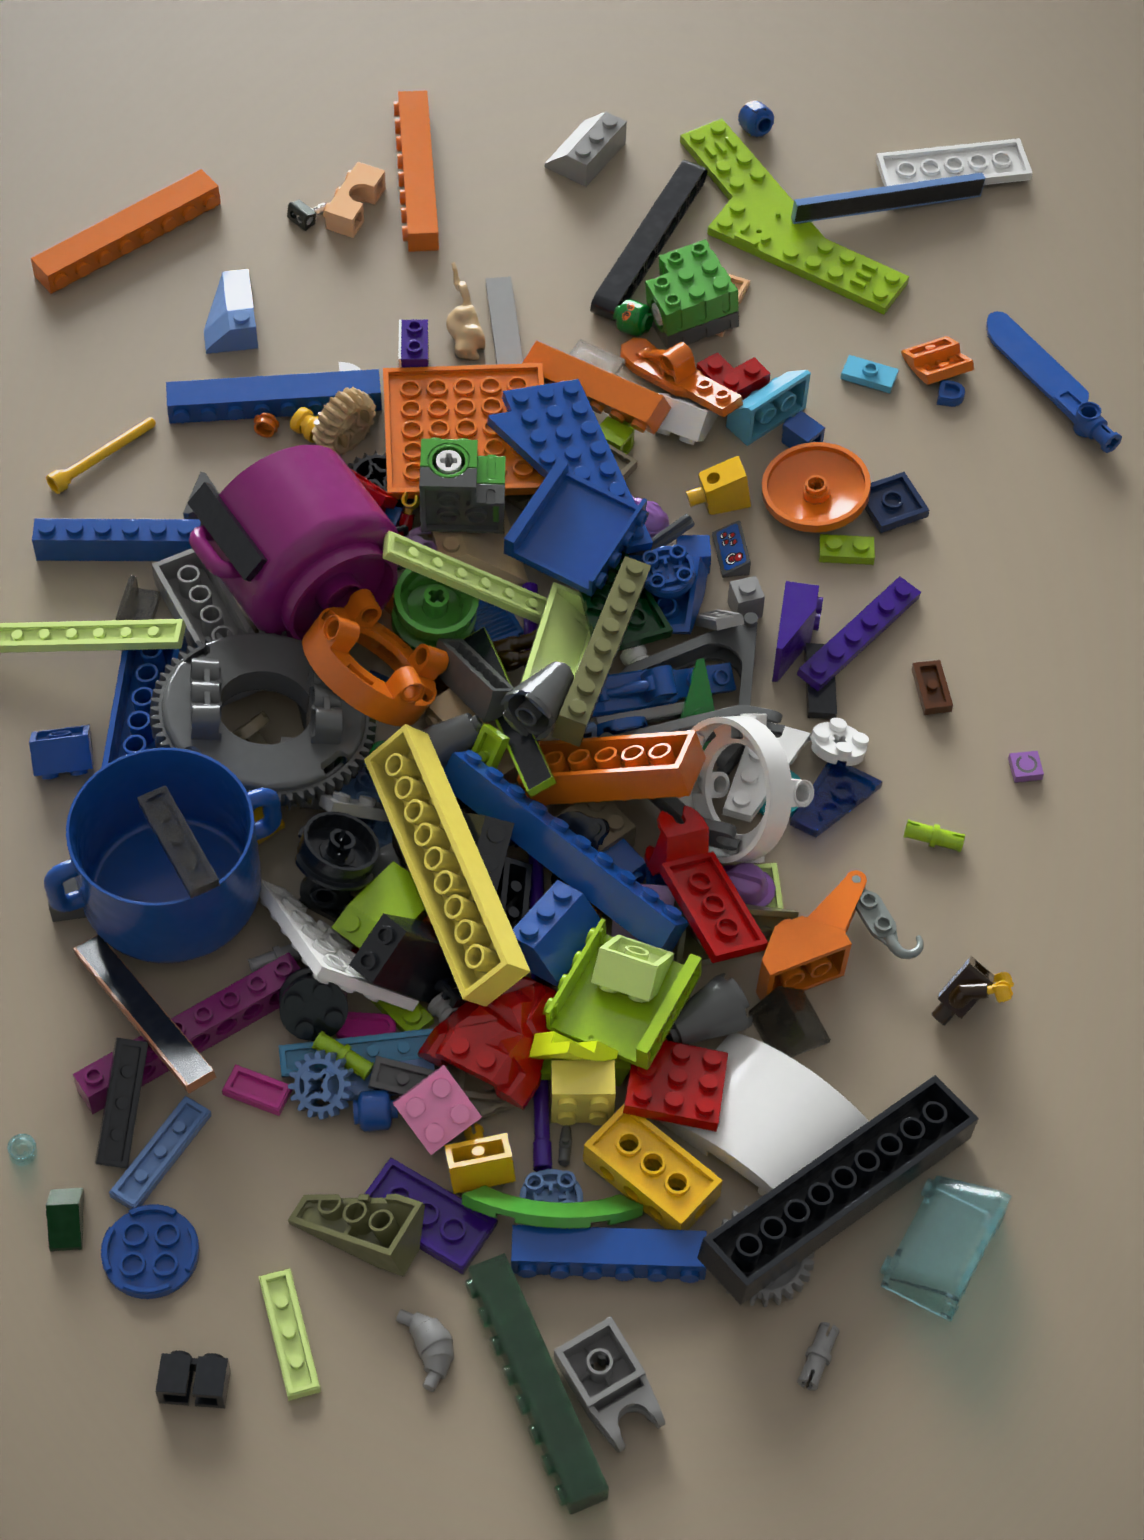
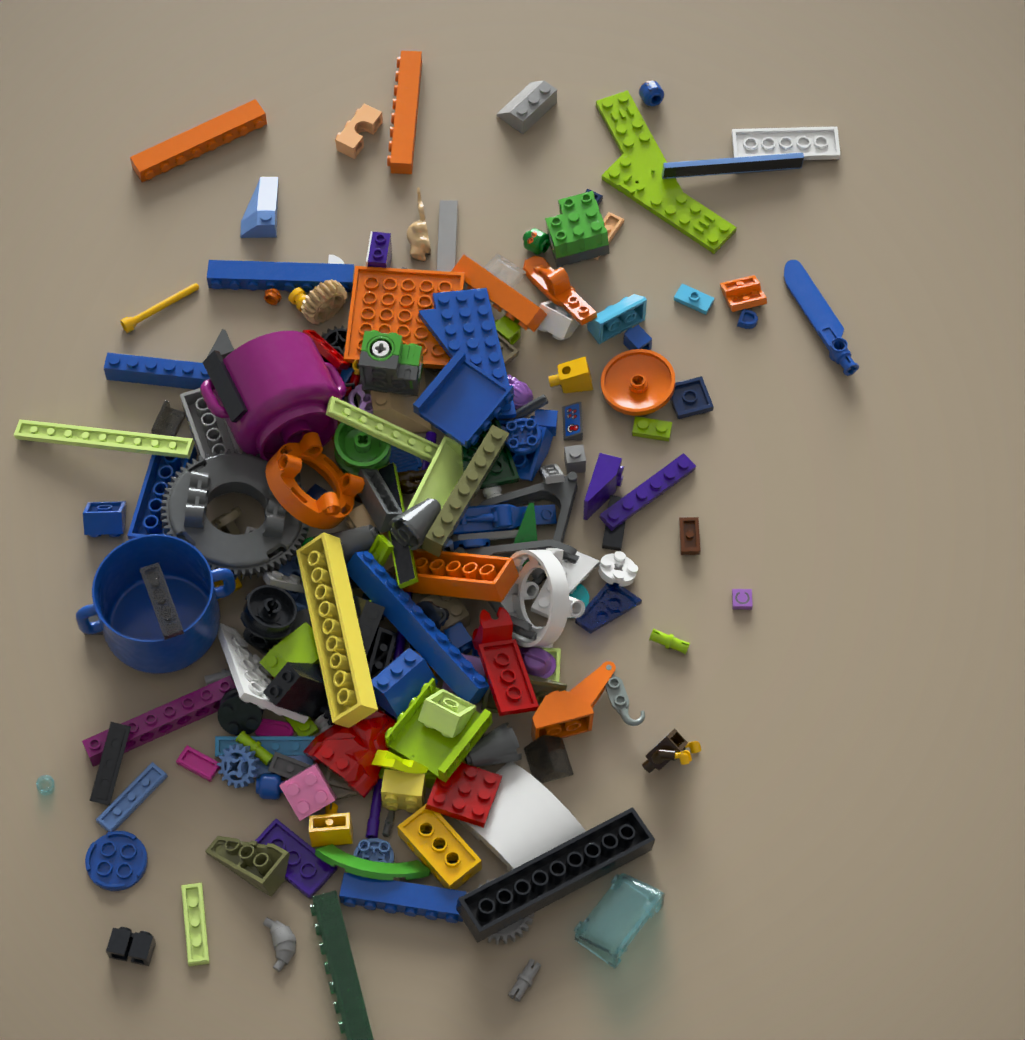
camera: 10 degrees right, 5 degrees up
(65, 1219) = (66, 833): dark green slope -> none
(145, 1014) = (132, 706): black tile -> none
(303, 214) = (321, 139): pearl dark grey piece -> none
(609, 1392) = (388, 986): light grey brick -> none
(649, 238) = (559, 180): black beam -> none
(741, 379) = (599, 297): red brick -> none

